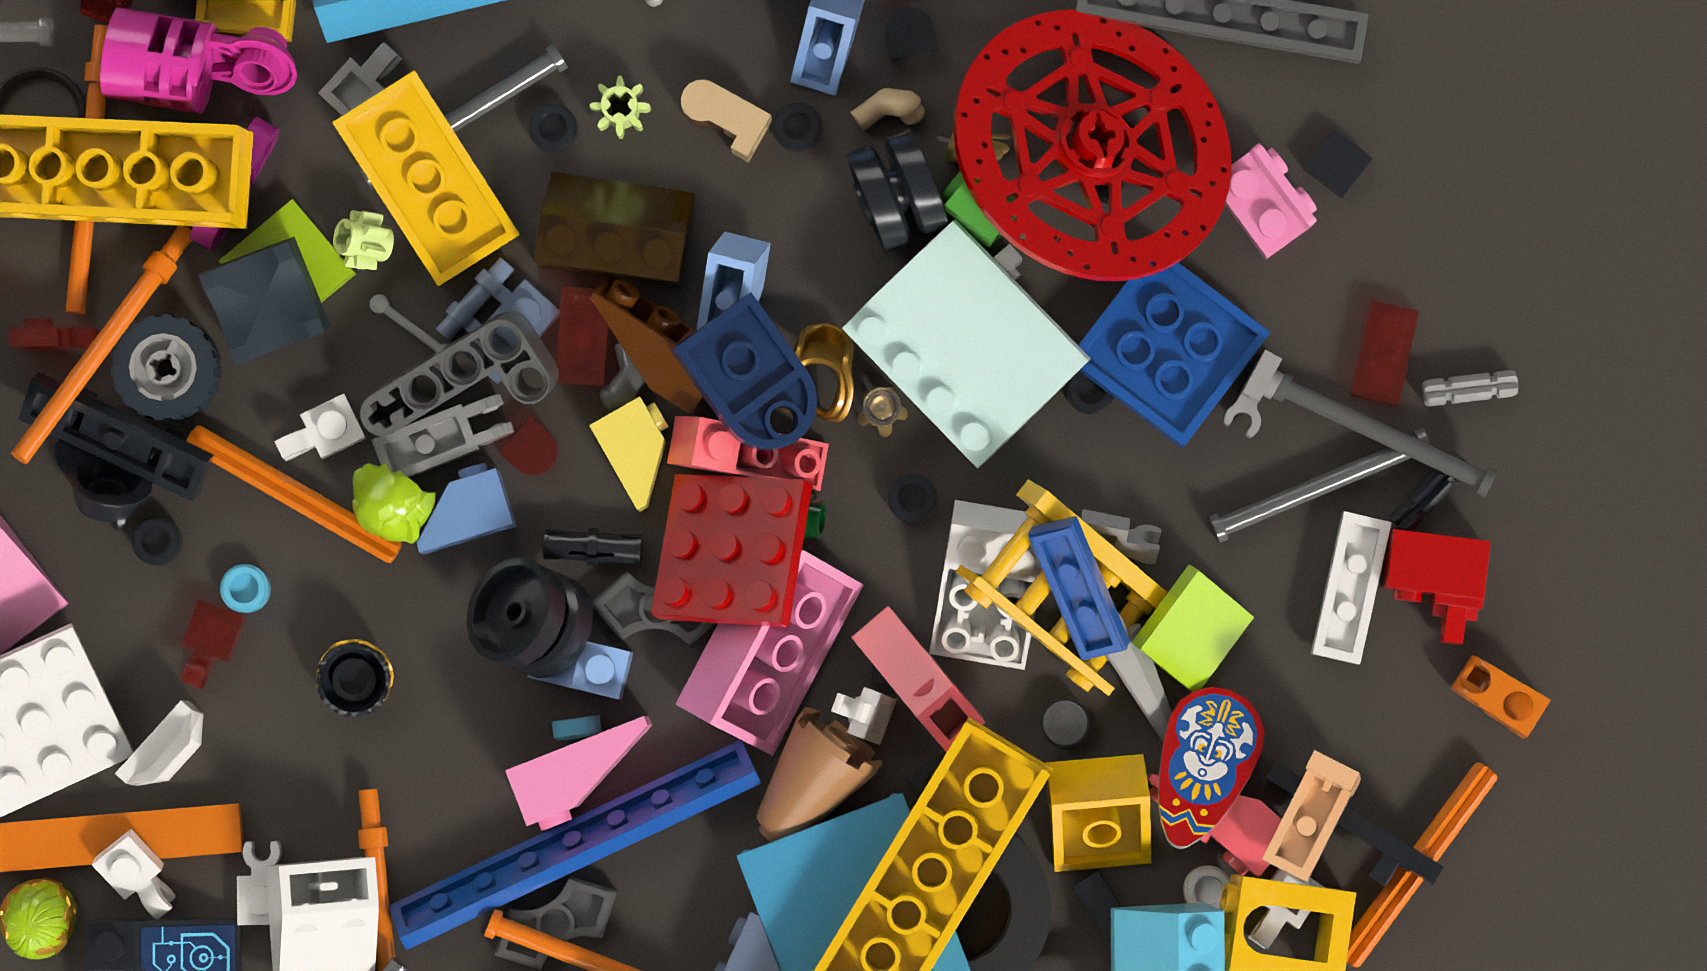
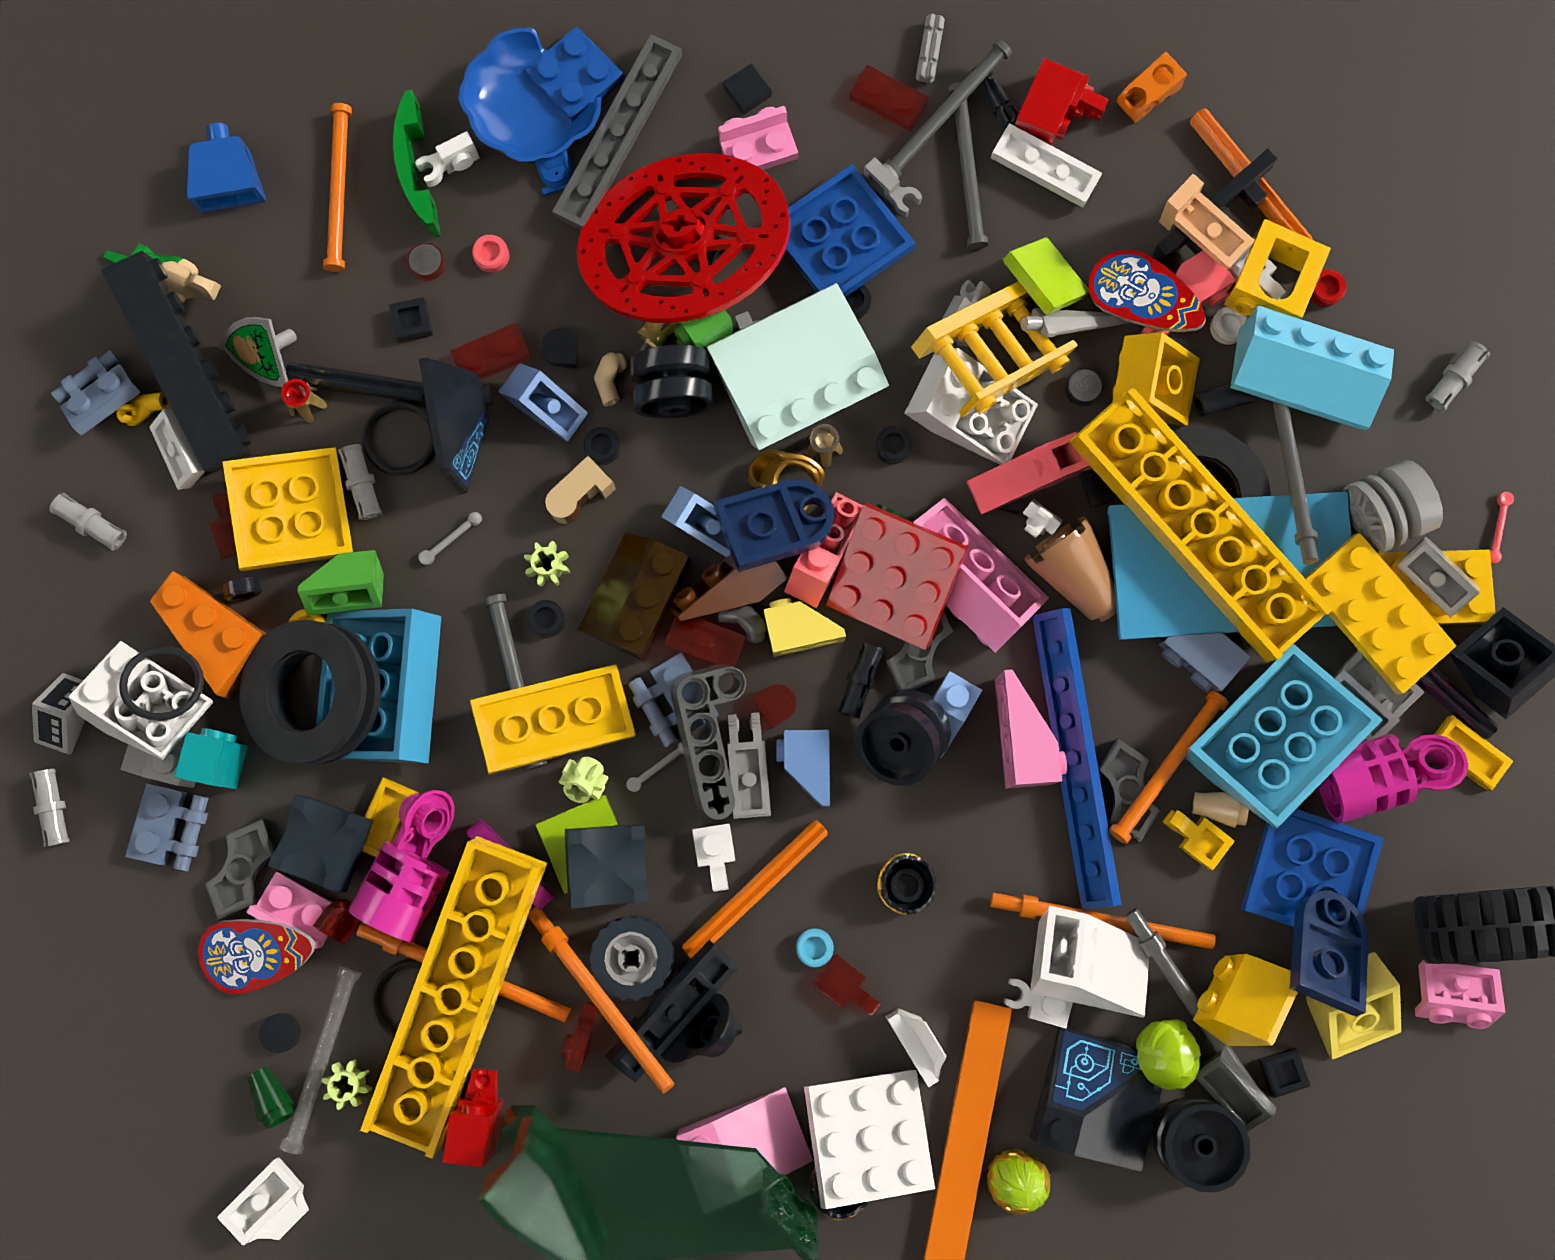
camera: 75 degrees left, 5 degrees down
(133, 867) = (1001, 1095): white plate -> none
(157, 541) = (759, 1004): black tile -> none
(358, 83) = (467, 750): light grey plate -> none
(390, 503) = (786, 816): lime hair -> none
(576, 727) = (990, 730): medium azure tile -> none
(1078, 588) = (1000, 332): blue tile -> none

